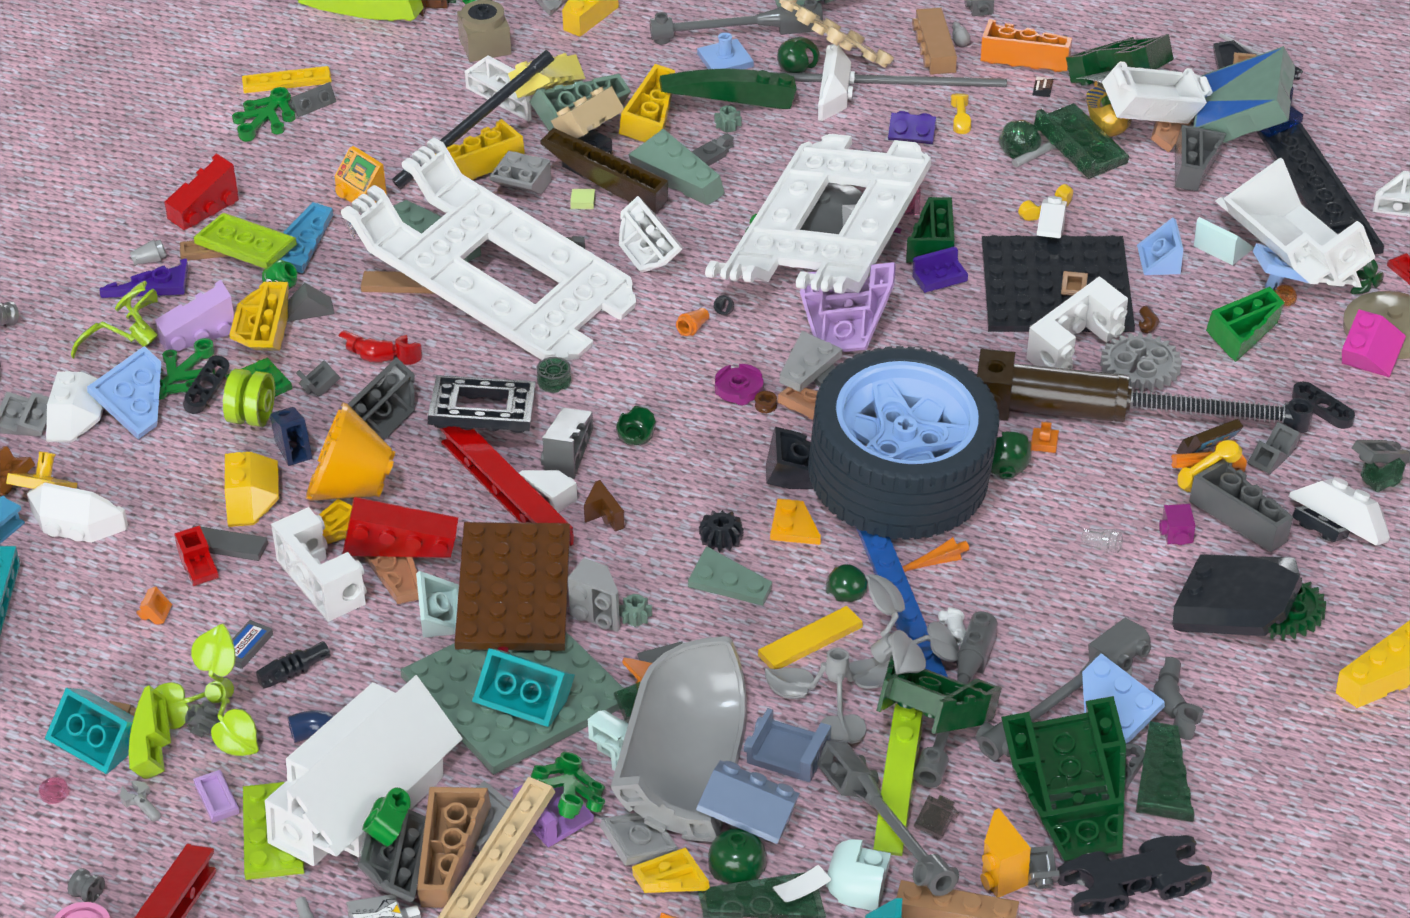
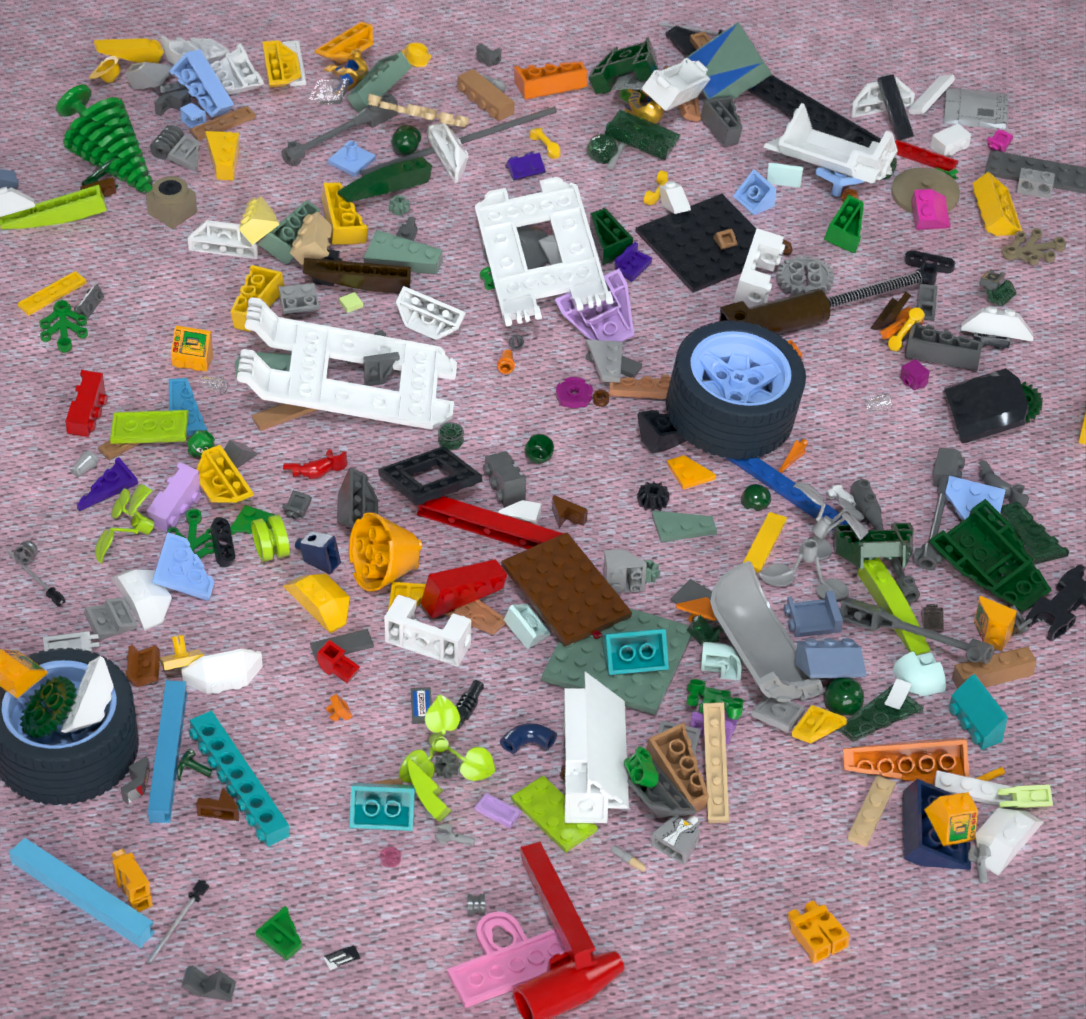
camera: 35 degrees left, 5 degrees up
(533, 270) = (378, 367): none -> dark grey wing
(535, 67) = (242, 269): black piece -> none
(1043, 86) = (579, 103): sticker -> none

